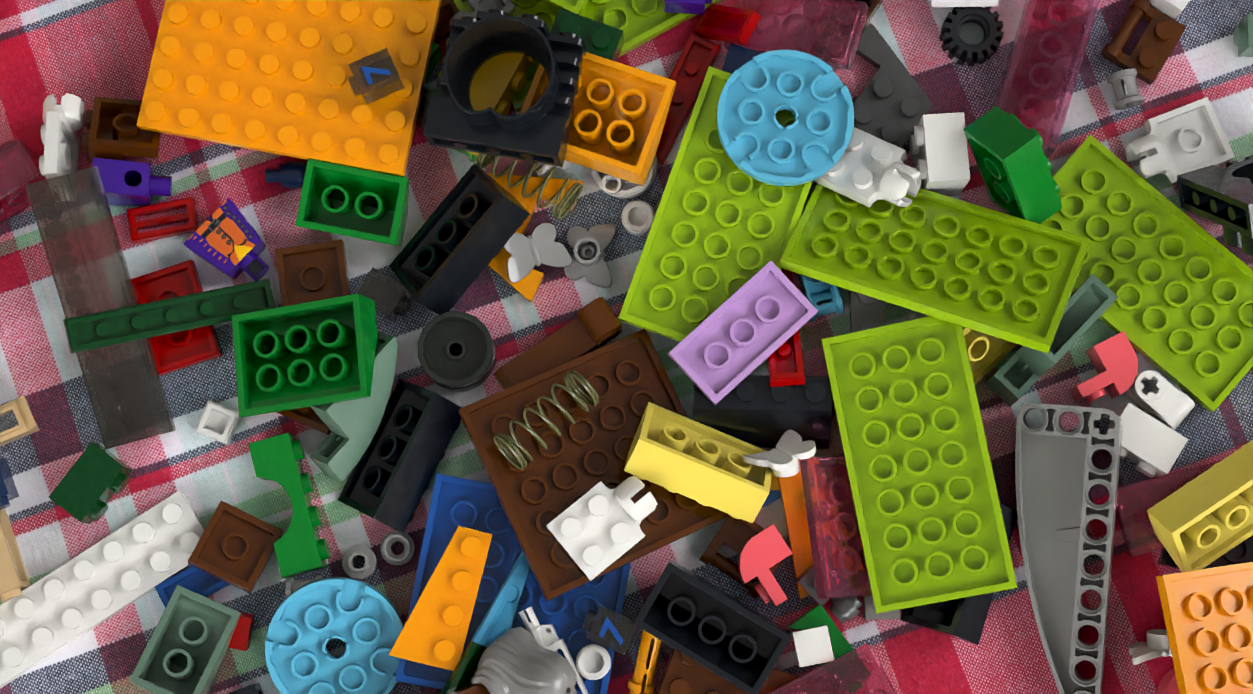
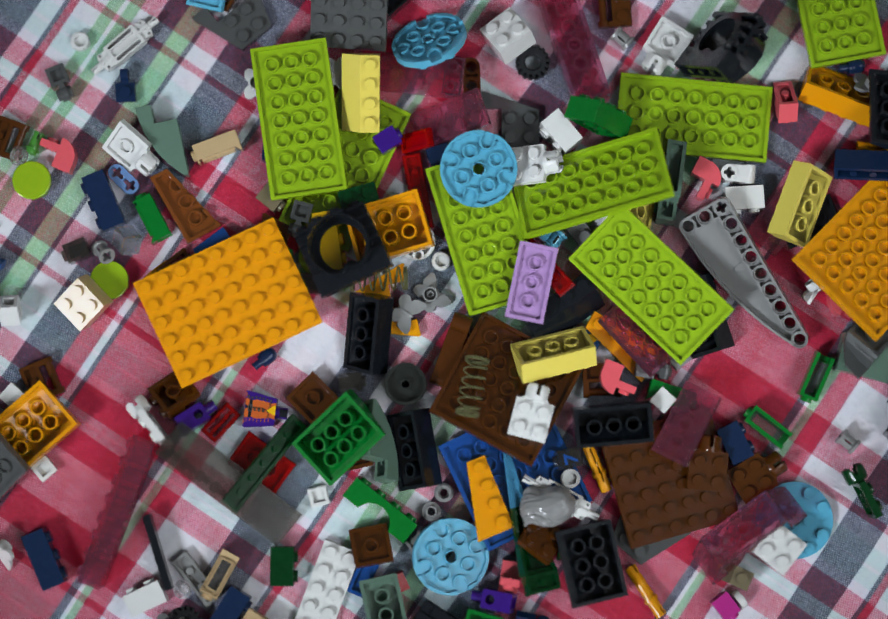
camera: 45 degrees left, 5 degrees up
(354, 202) = (307, 351): green slope -> none
(375, 76) = (278, 287): clear smoke brick -> none
(786, 455) = (590, 325): white animal -> none

